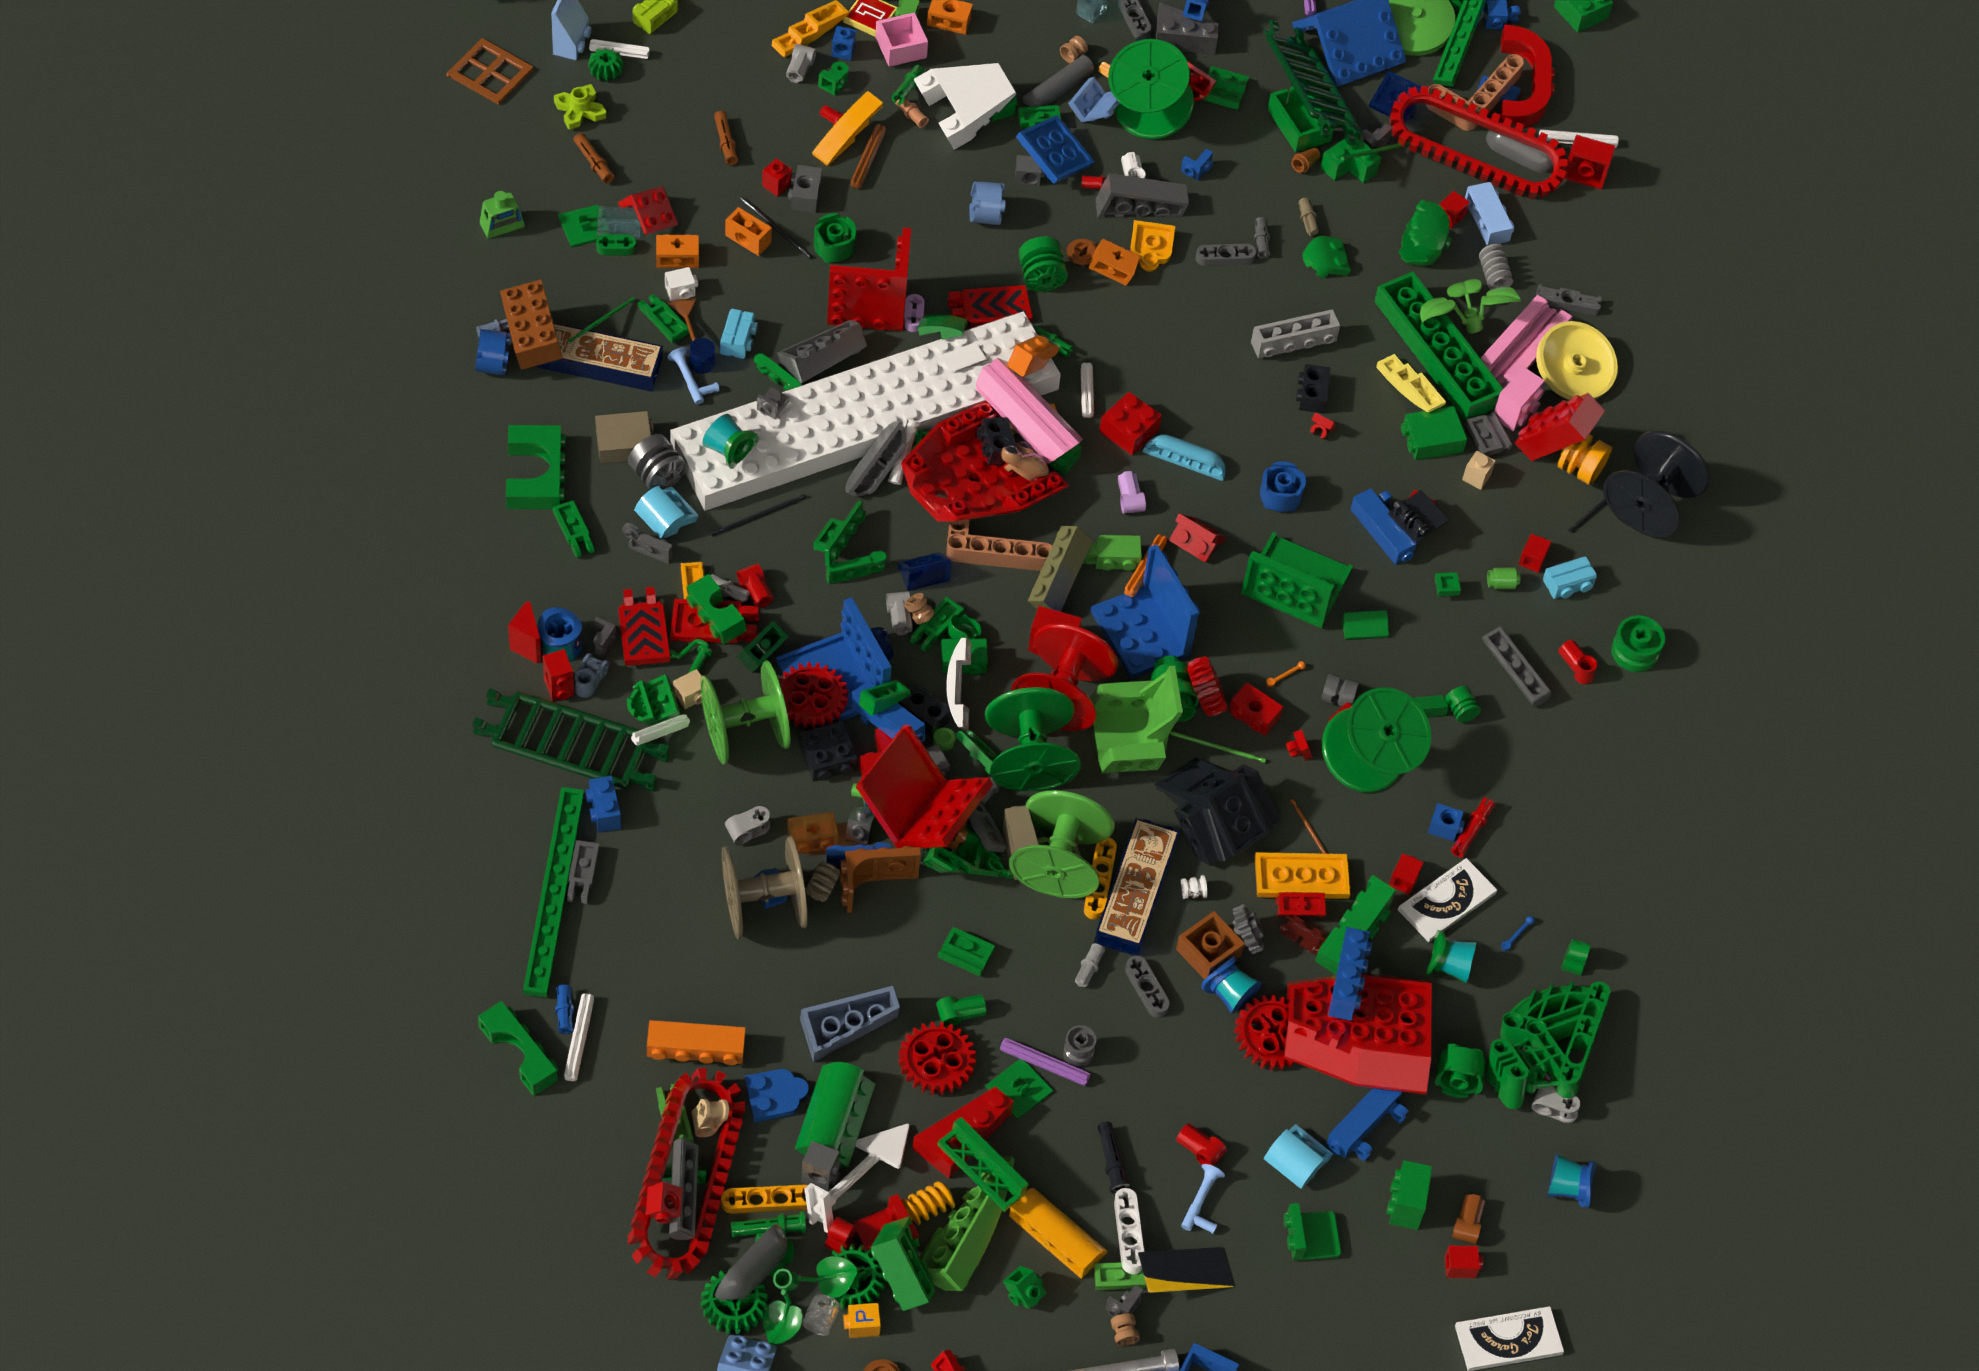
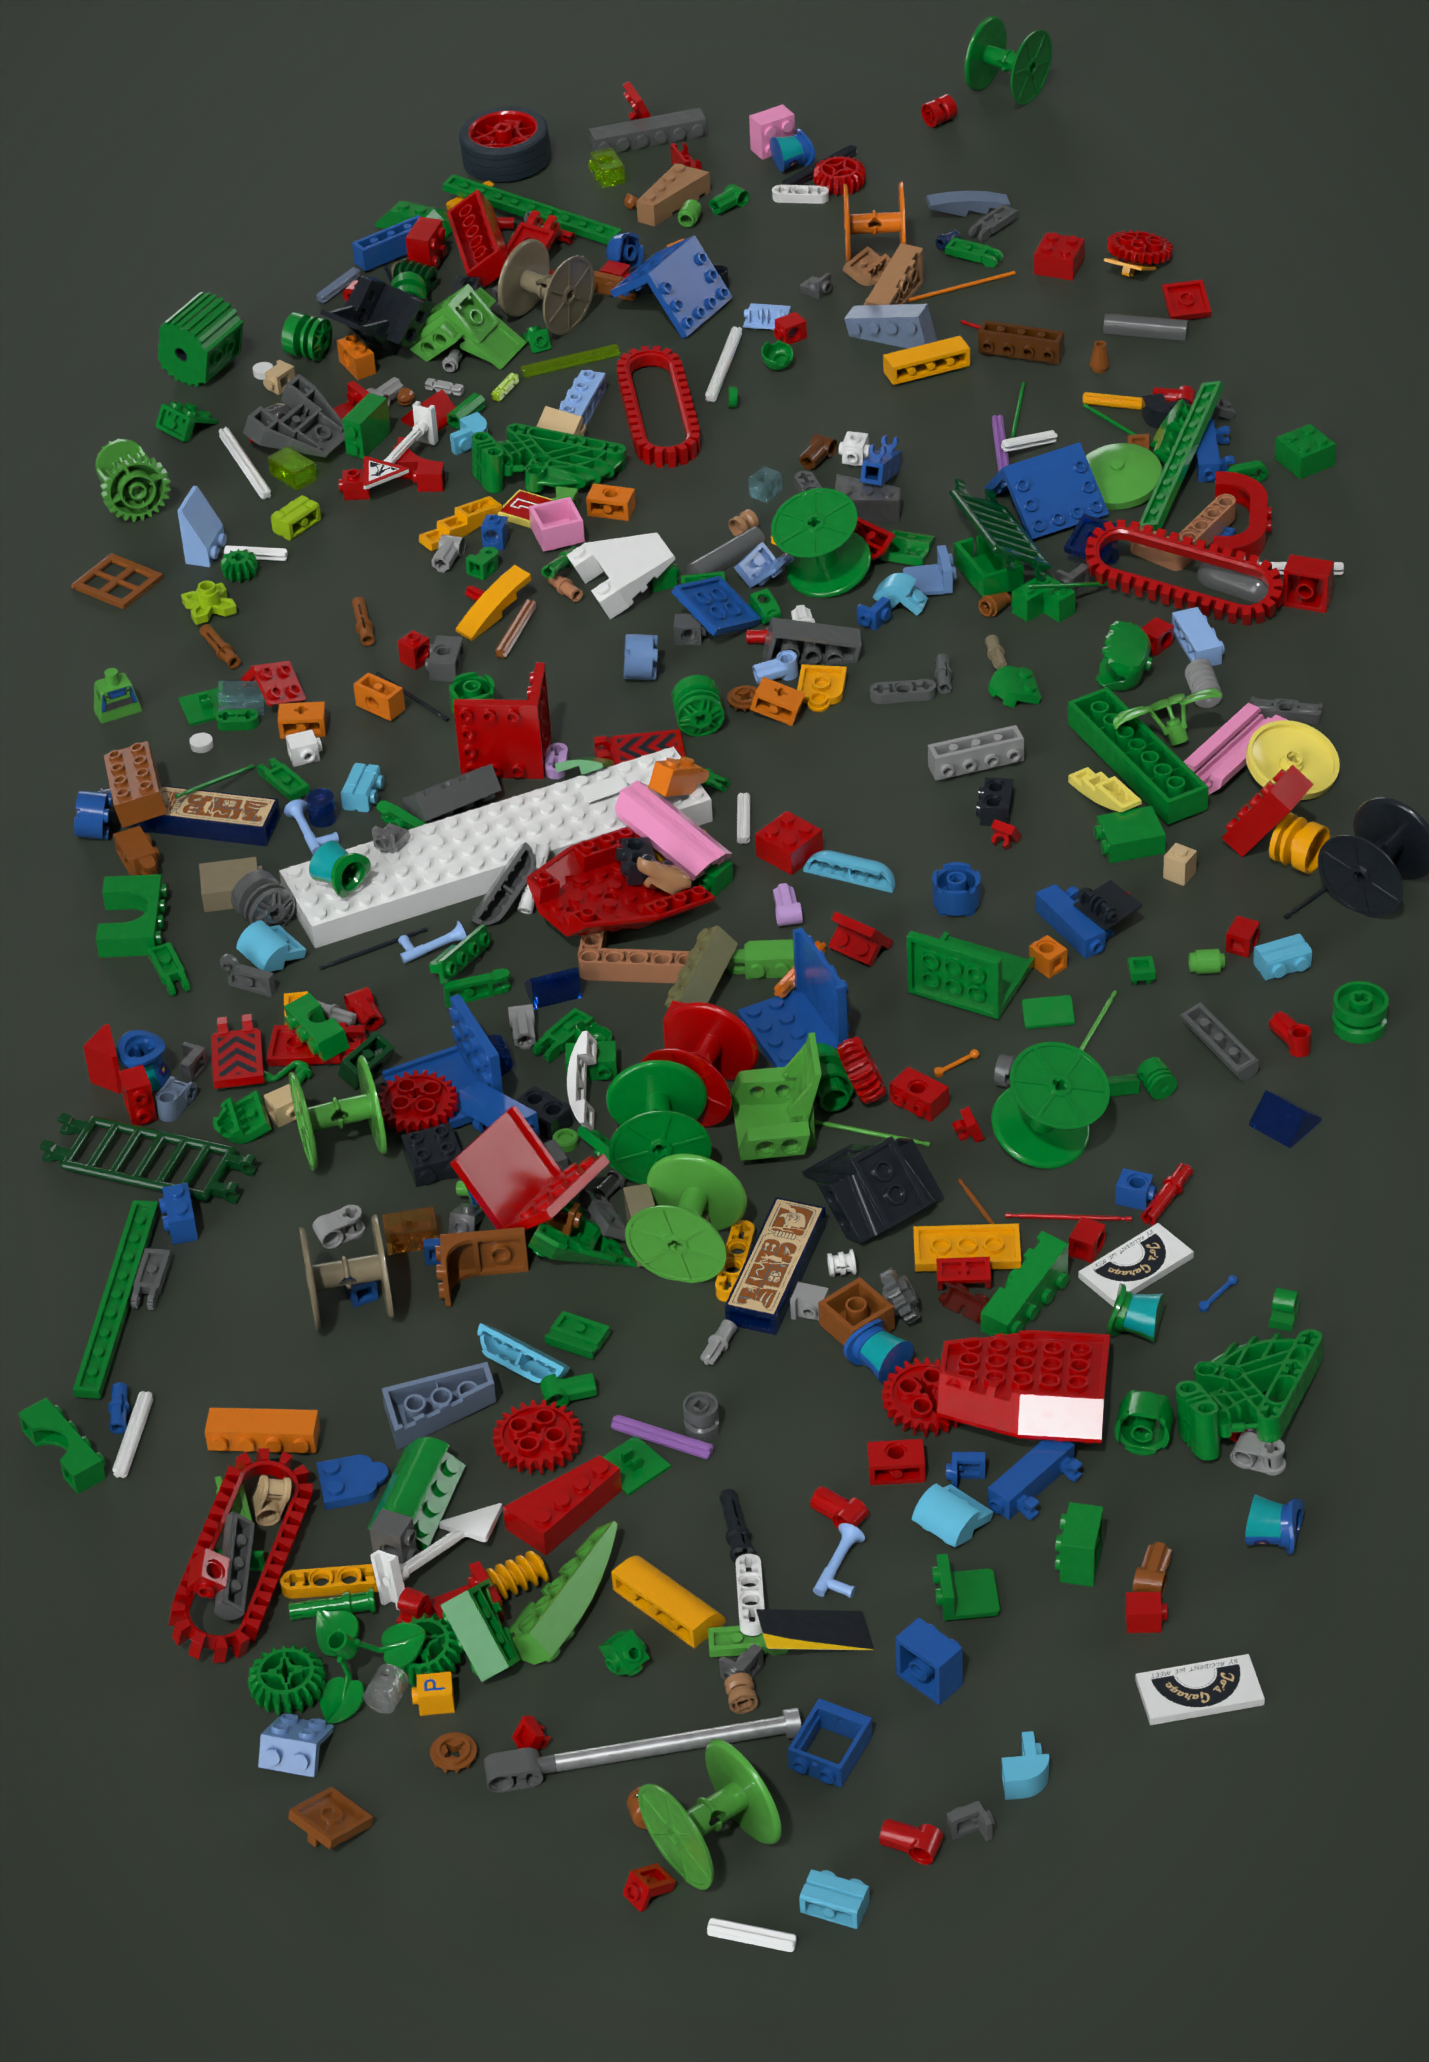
camera: 10 degrees right, 15 degrees down
(535, 396) = (137, 852): none -> dark orange hinge
(584, 269) = (201, 742): none -> white tile
(660, 729) = (247, 1142): white axle -> none
(684, 308) = (306, 771): dark orange piece -> none
(754, 1265) = (306, 1634): dark grey brick -> none
(794, 523) = (412, 952): none -> light blue piece
(822, 881) = (417, 1272): dark tan gear -> none
(875, 699) = (489, 1090): green slope -> none
(918, 607) = (542, 1017): medium nougat wheel -> none
(918, 972) = (518, 1355): none -> medium azure brick
(989, 1158) = (589, 1524): green fence -> none
(1098, 150) = (767, 608): none -> green leg
(1116, 221) = (783, 667): none -> light blue piece
(1147, 996) = (784, 1350): dark grey beam -> none
(1168, 927) = (805, 1300): none -> light grey brick
(1221, 140) = (900, 588): none -> medium azure brick
(1240, 1107) = (896, 1462): none -> red brick
(1247, 125) = (937, 577): none -> medium blue bracket
(1285, 1308) = (929, 1661): none -> blue brick
(1308, 1105) = (966, 1466): none -> blue bracket
(1348, 975) = (1011, 1323): blue brick -> none
(1371, 566) = (1049, 956): none -> orange brick
(1387, 845) = (1067, 1217): none -> red piece
(1404, 644) = (1098, 1020): none -> bright green piece
(1488, 434) = (1192, 832): dark grey plate -> none
(1519, 399) = (1224, 795): bright pink piece -> none
(1536, 23) = (1250, 468): none -> green beam
(1571, 752) = (1283, 1119): none -> clear blue slope

